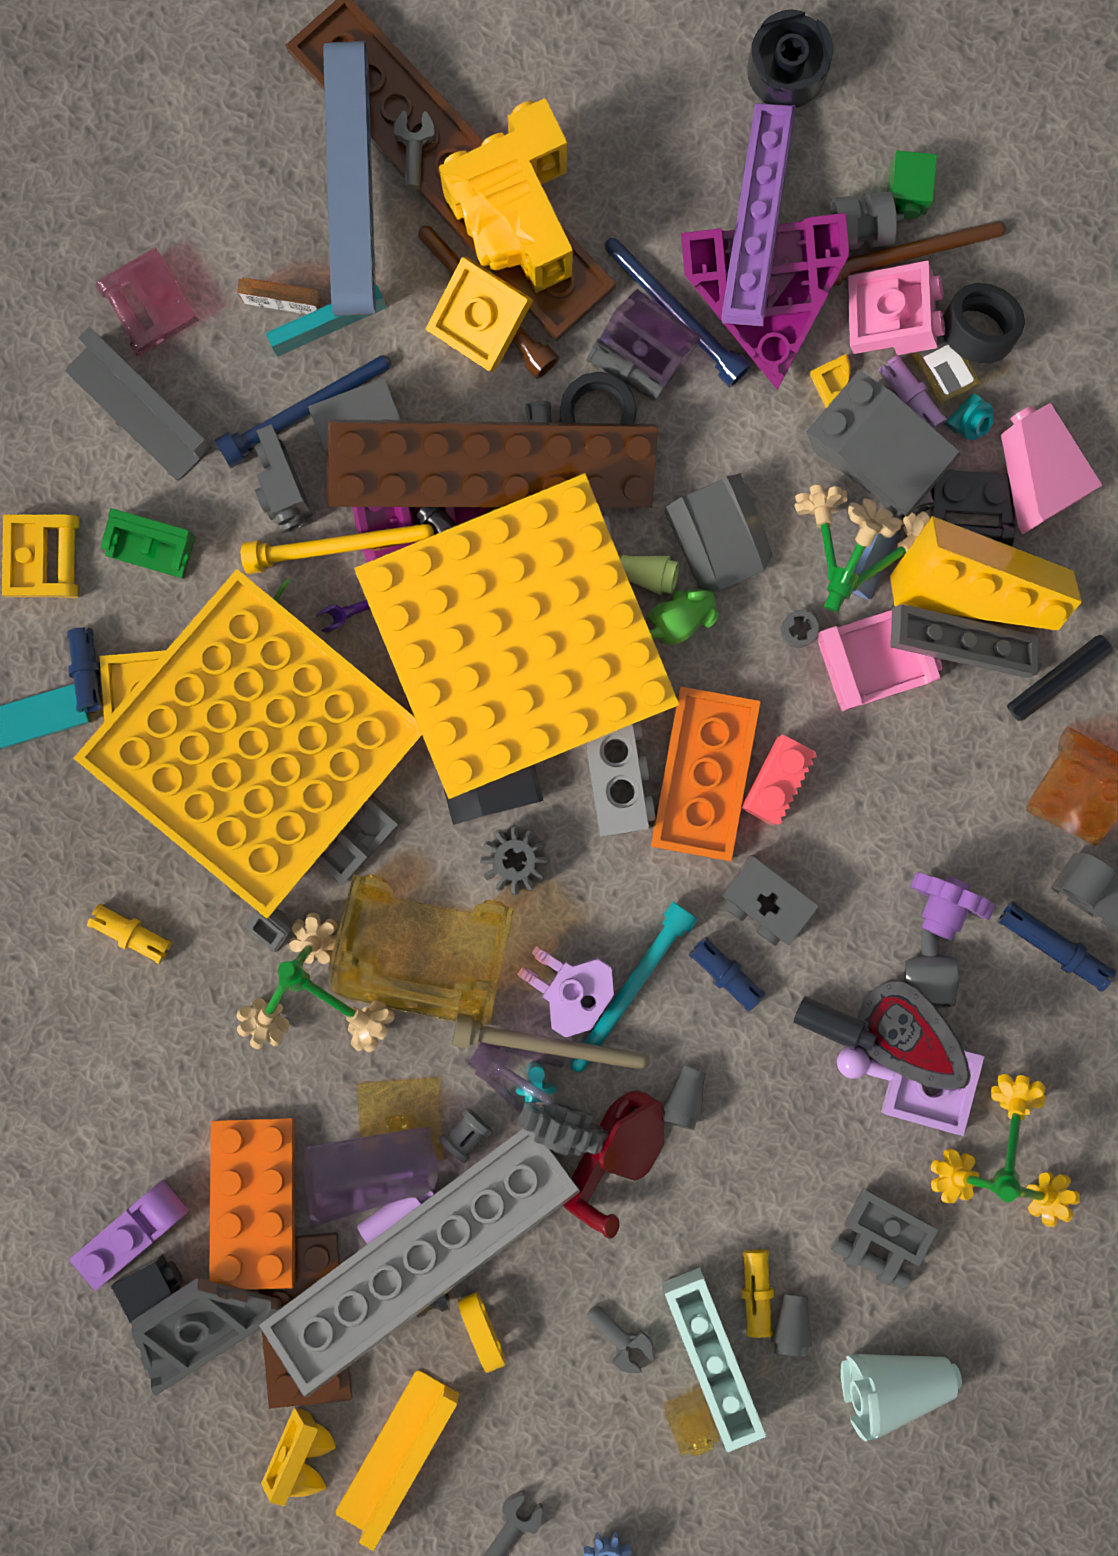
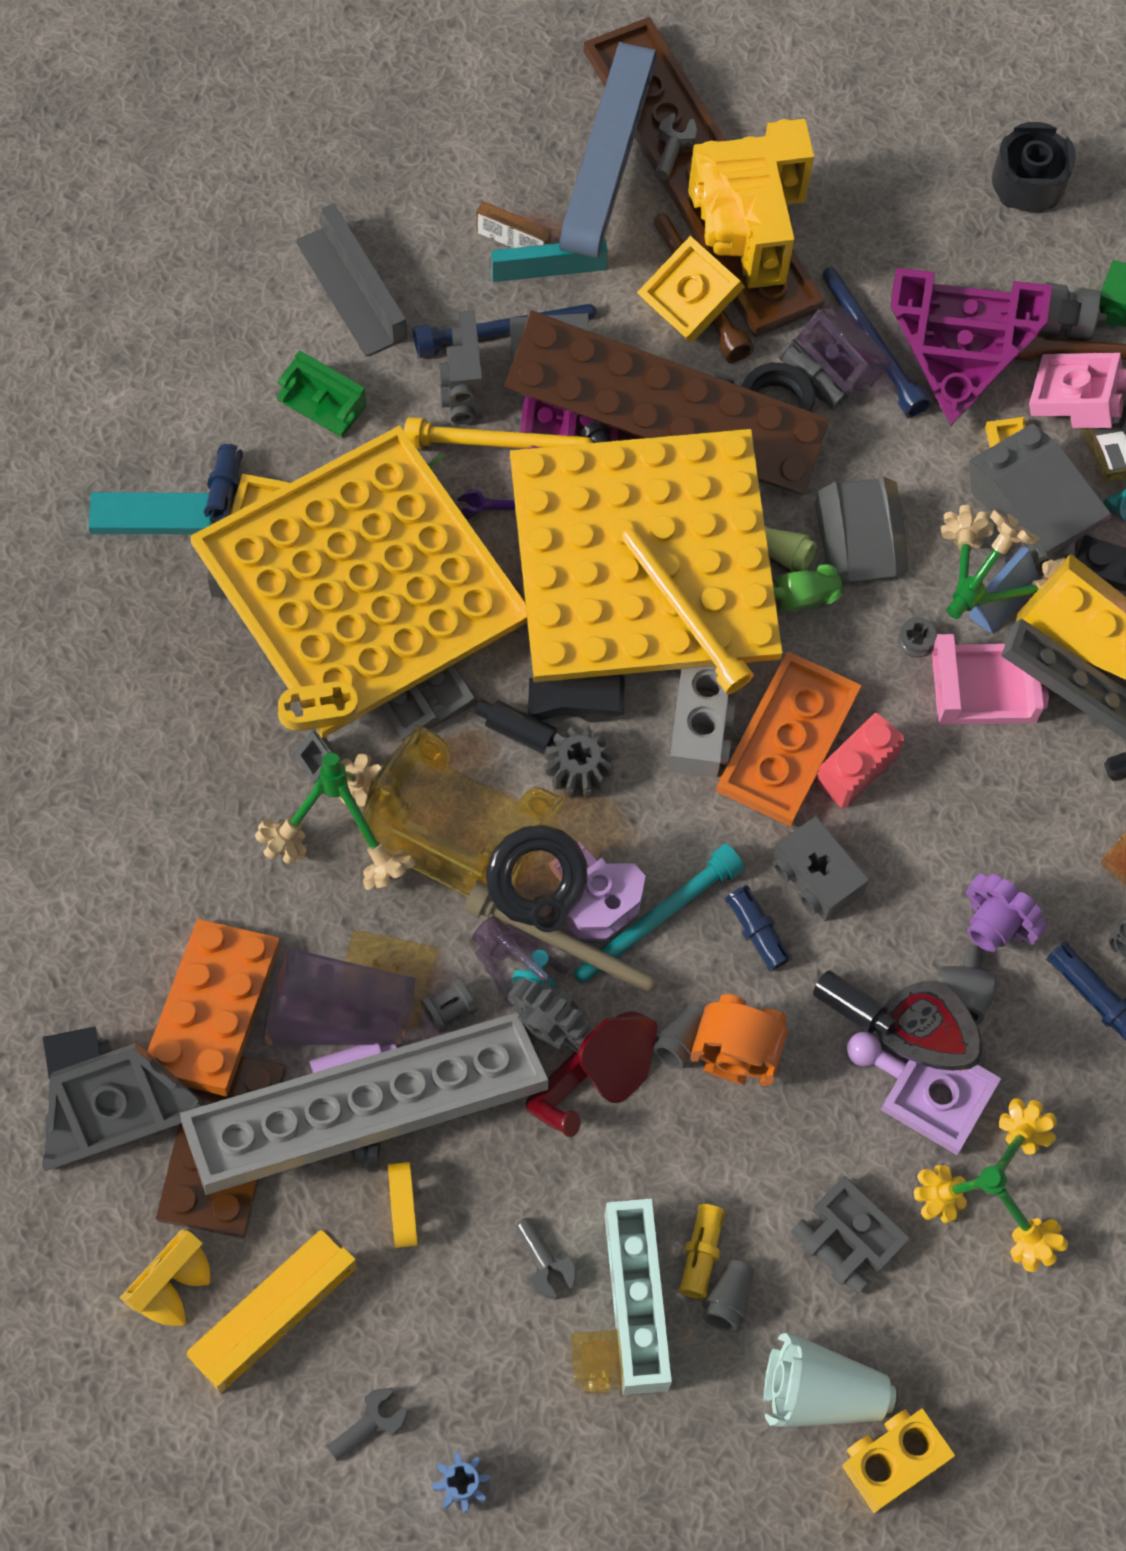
camera: 10 degrees right, 20 degrees down
(27, 552) = (206, 373): yellow plate -> none
(129, 933) = (180, 725): yellow pin -> none
(129, 1235) = (76, 1002): medium lavender plate -> none
(157, 293) = (402, 200): clear pink plate -> none
(249, 888) = (317, 705): none -> yellow beam
(445, 838) = (517, 725): none -> black cylinder
(530, 1031) = (562, 900): none -> black piece
(635, 744) = (731, 672): none -> yellow piece
(741, 1101) = (740, 1040): none -> orange brick
(758, 215) = (971, 278): medium lavender tile -> none
(911, 391) = (1082, 461): lavender pin -> none
(985, 1434) = (902, 1467): none -> yellow brick

